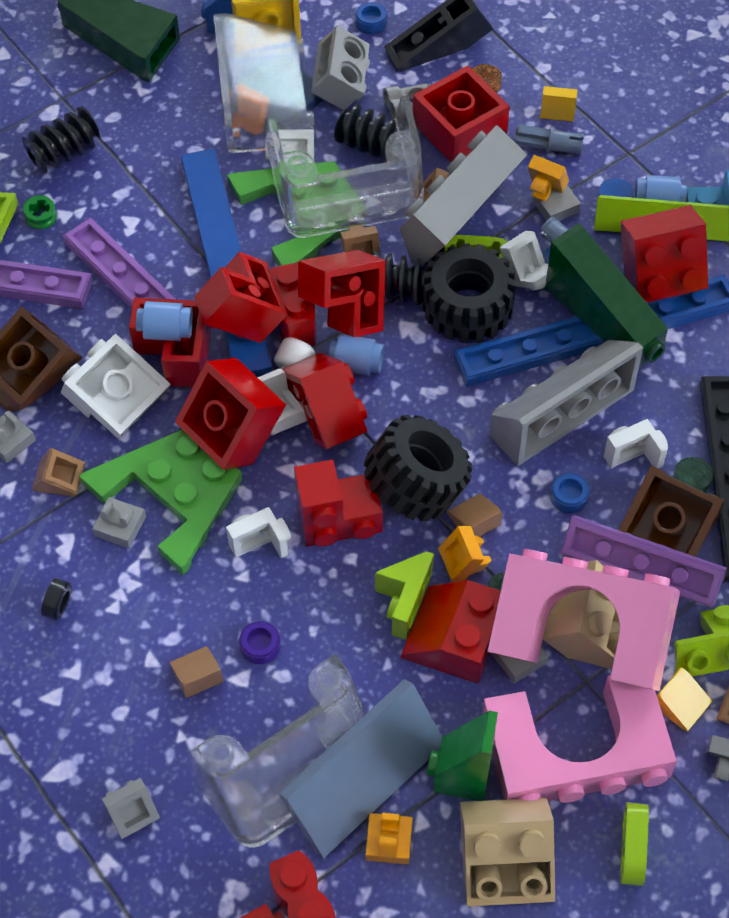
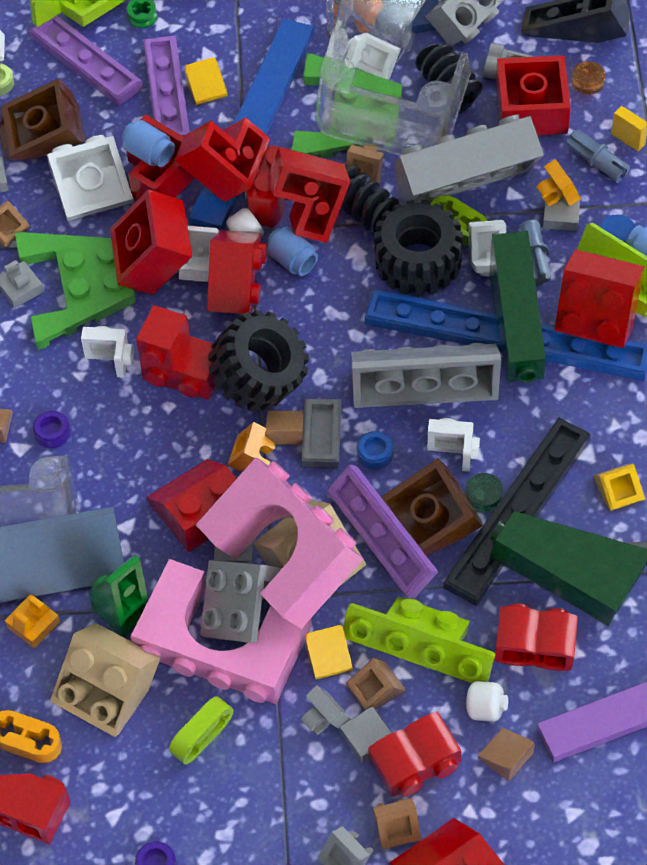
camera: 35 degrees right, 0 degrees up
(151, 245) = (205, 81): none -> yellow slope
(407, 586) = (189, 448): lime slope -> none
(520, 513) = (321, 433): none -> flat silver tile
(576, 699) = (234, 600): none -> light grey bracket

